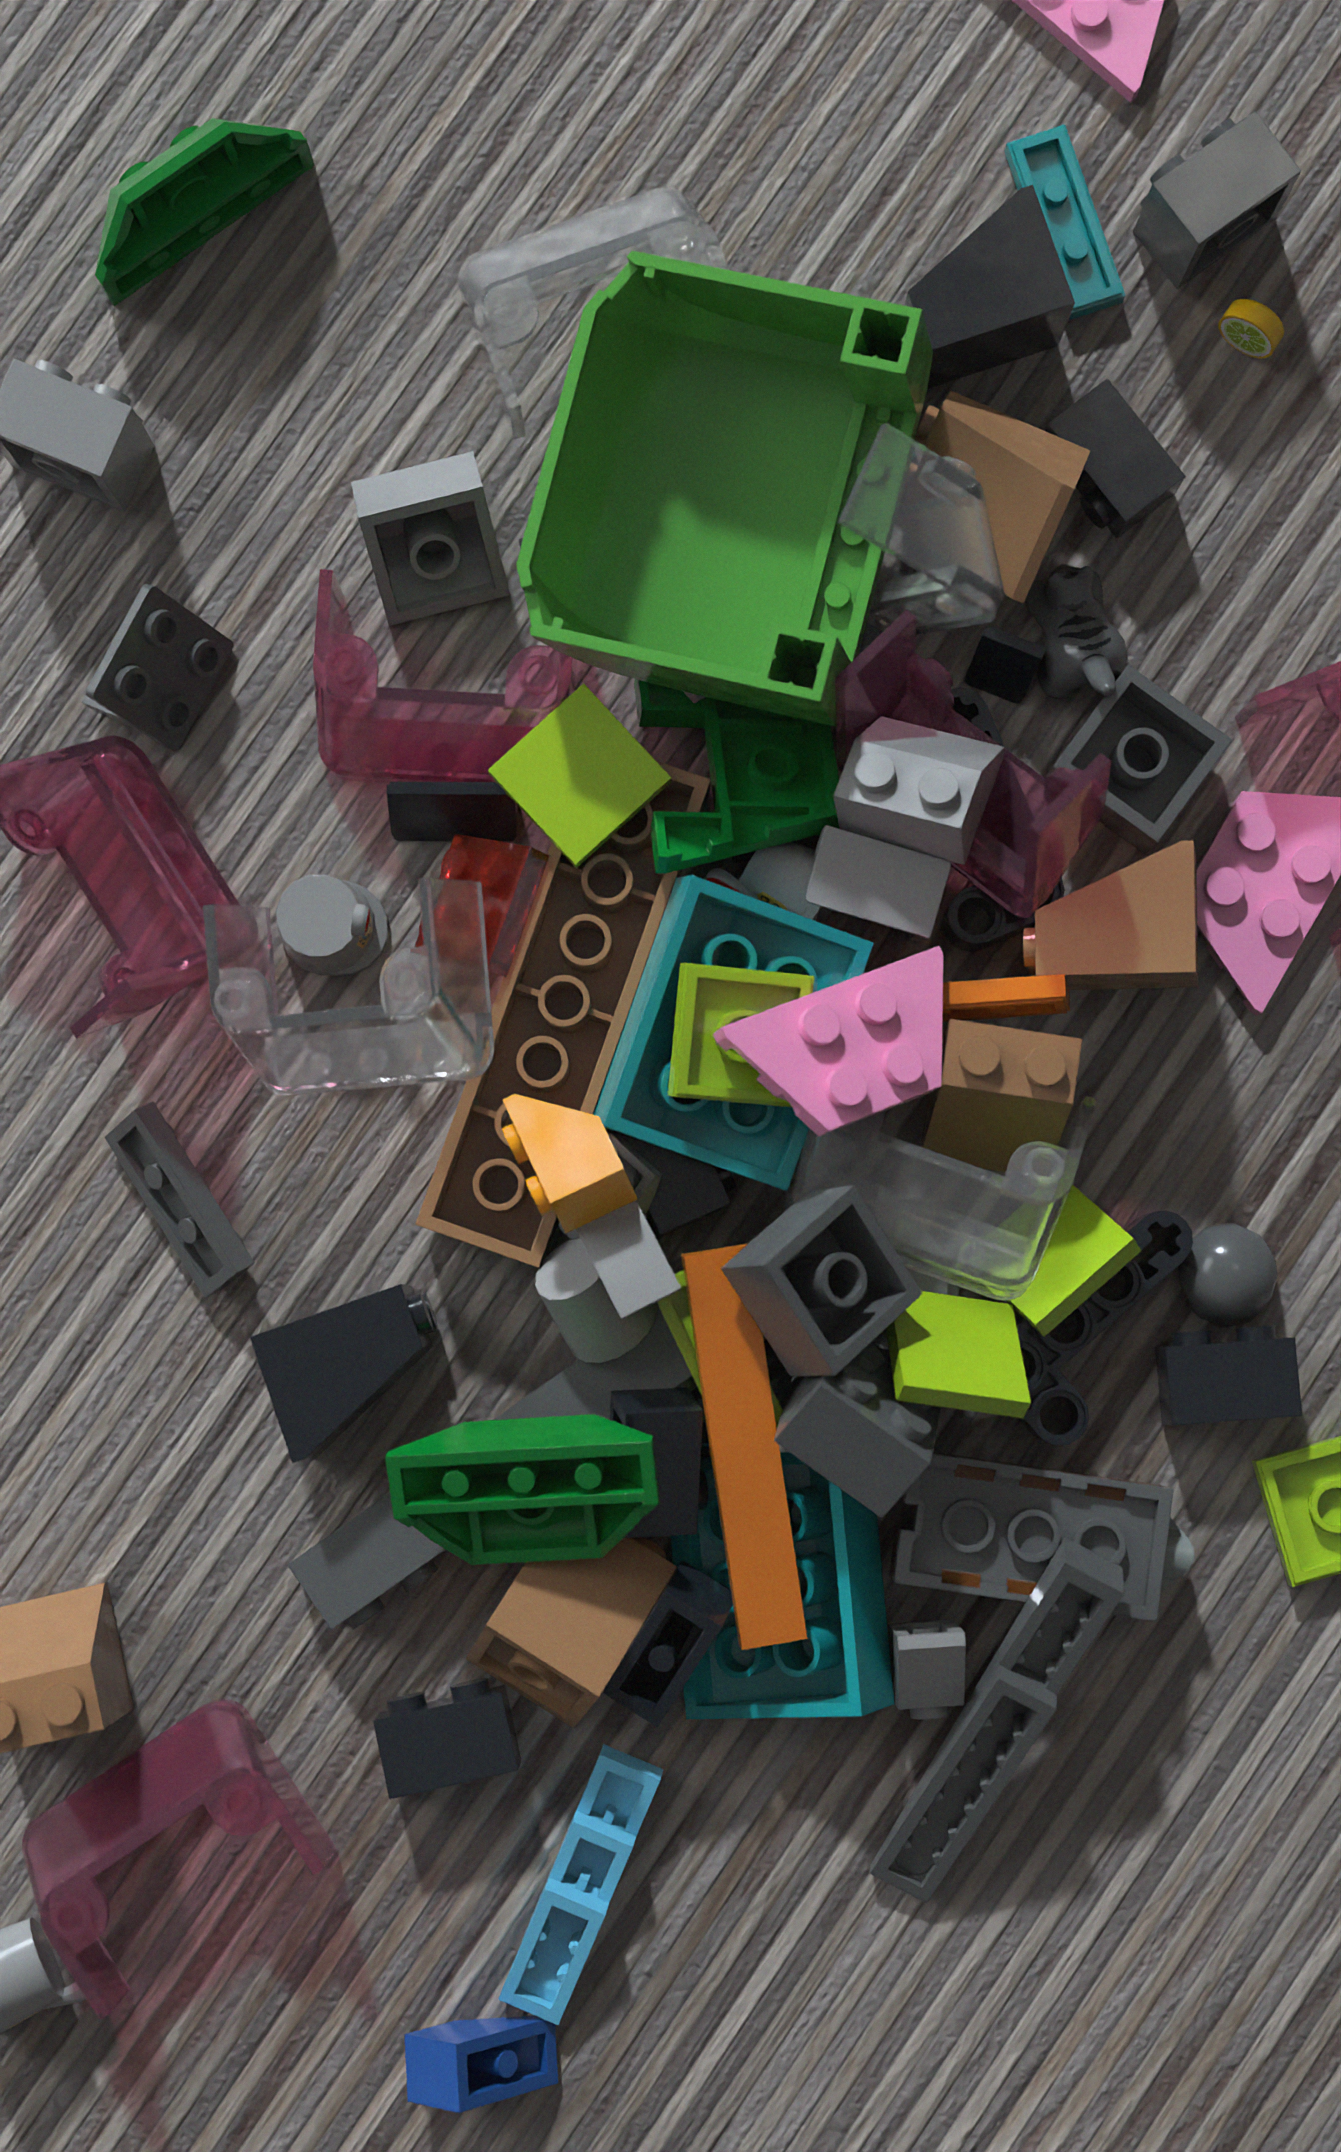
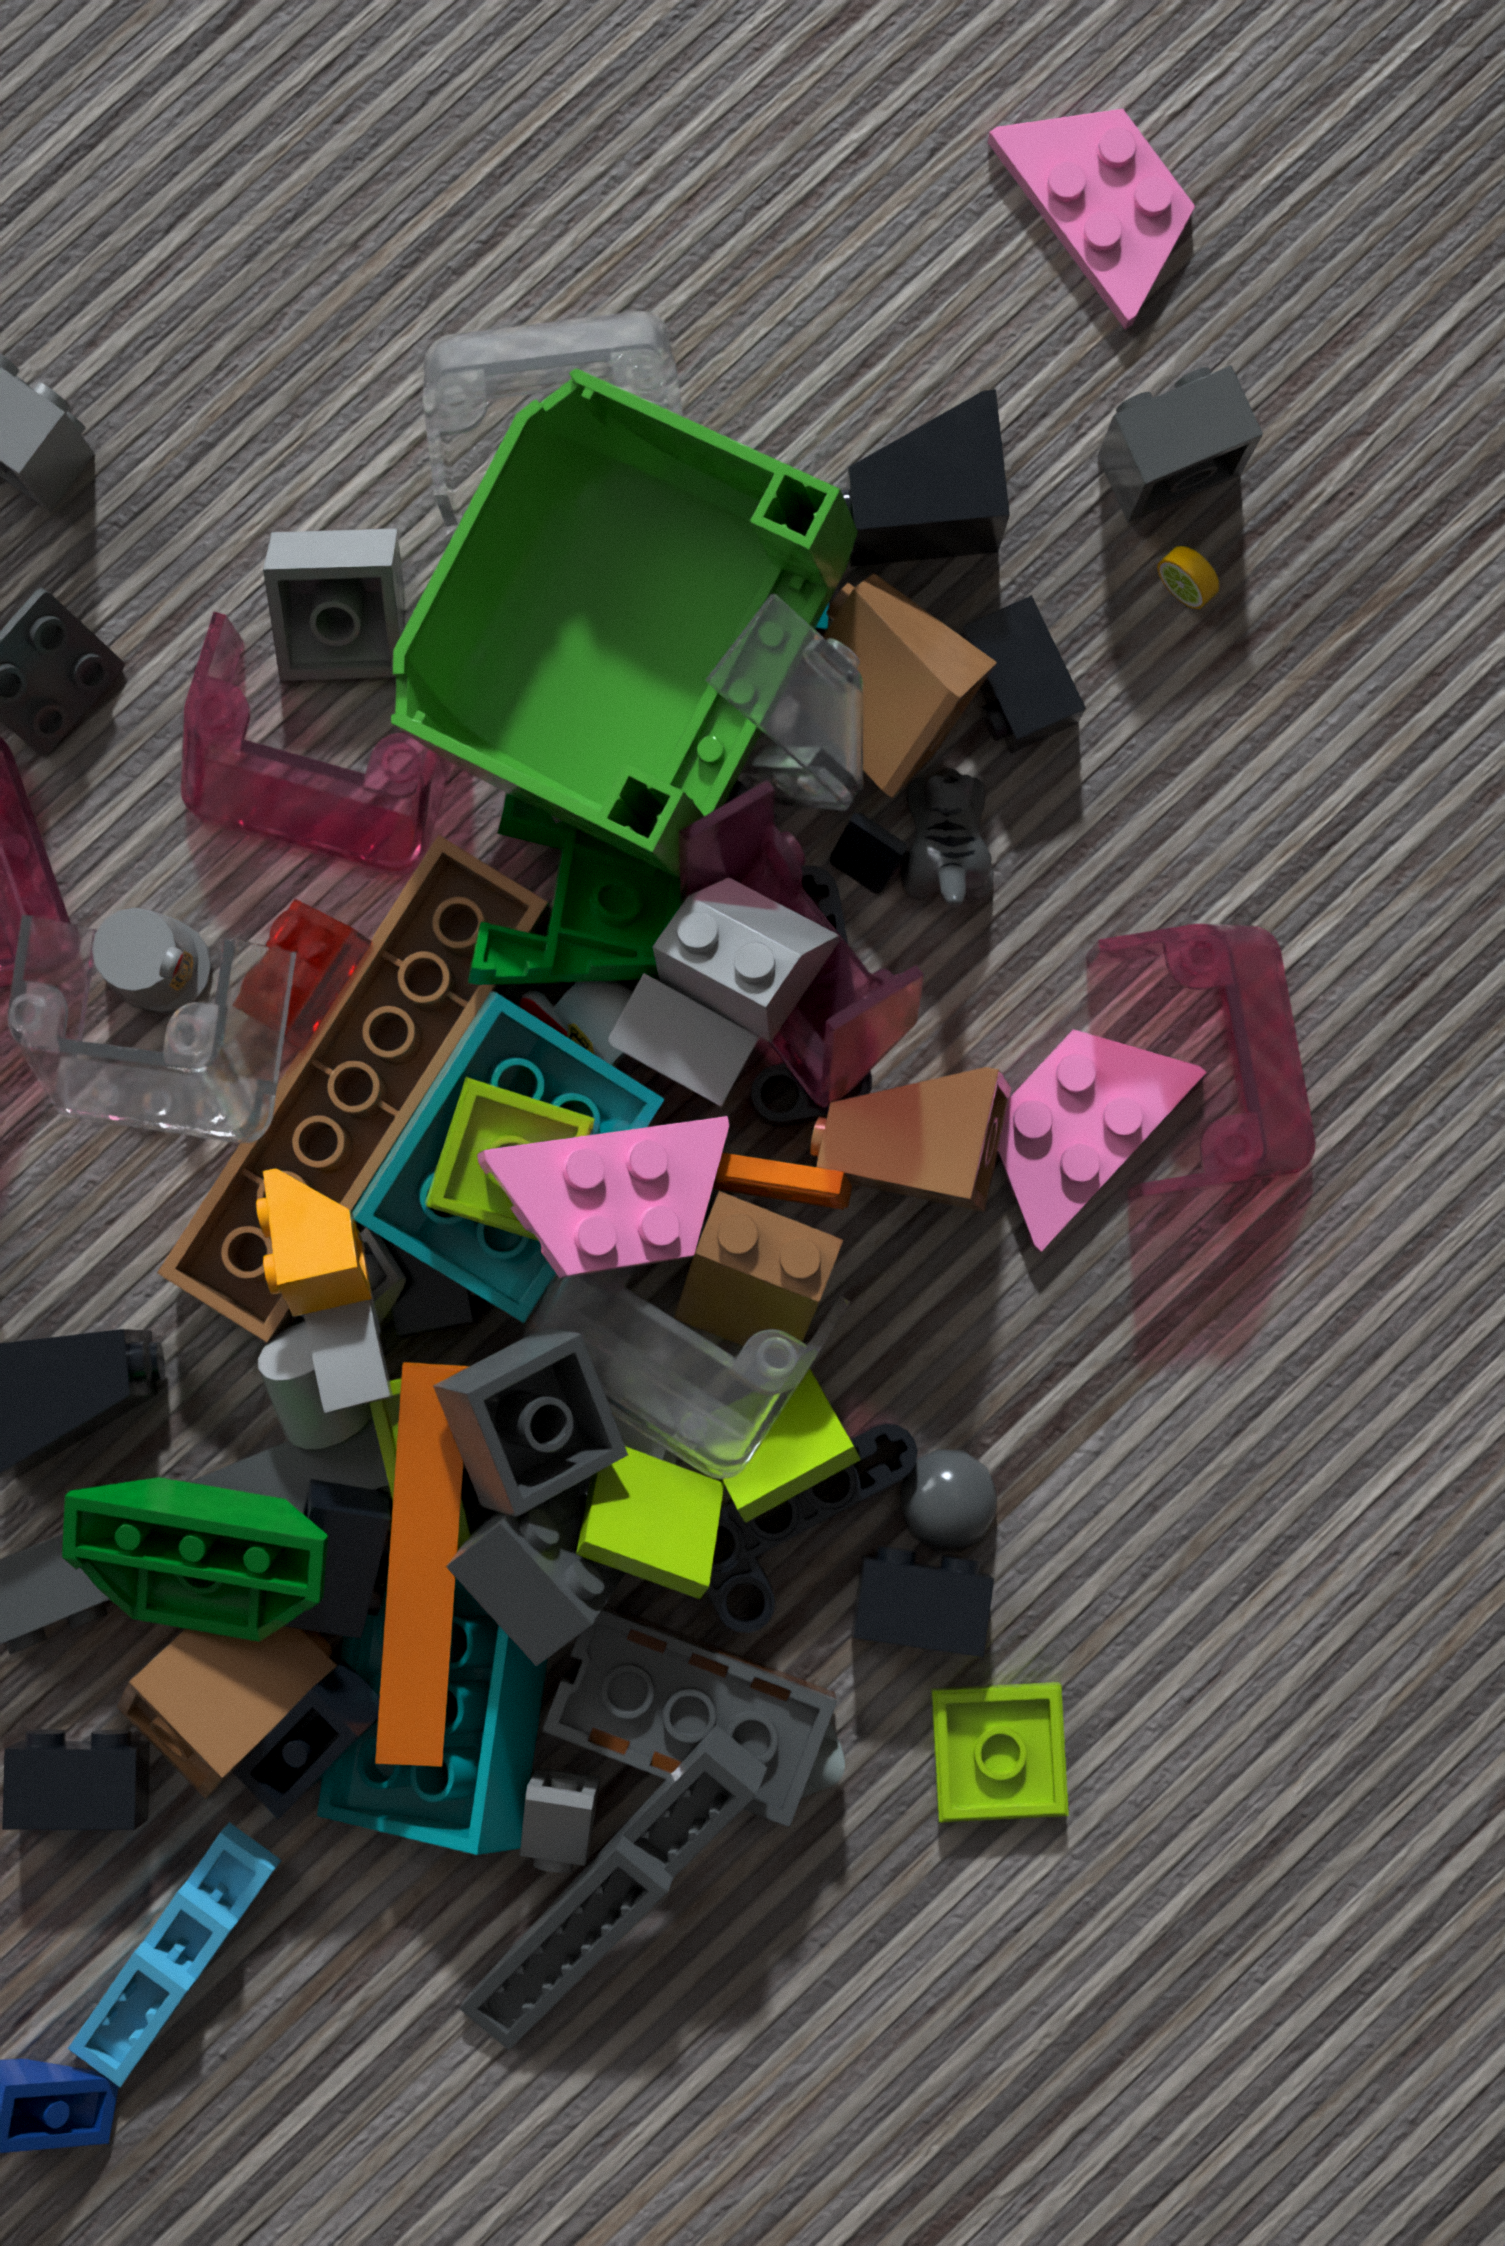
camera: 10 degrees right, 0 degrees up
(191, 196) = (180, 220): green wedge -> none
(449, 808) = (293, 873): black slope -> none
(579, 775) = (418, 870): lime tile -> none
(1054, 171) = (1032, 433): teal tile -> none
(1155, 752) = (978, 975): dark grey brick -> none

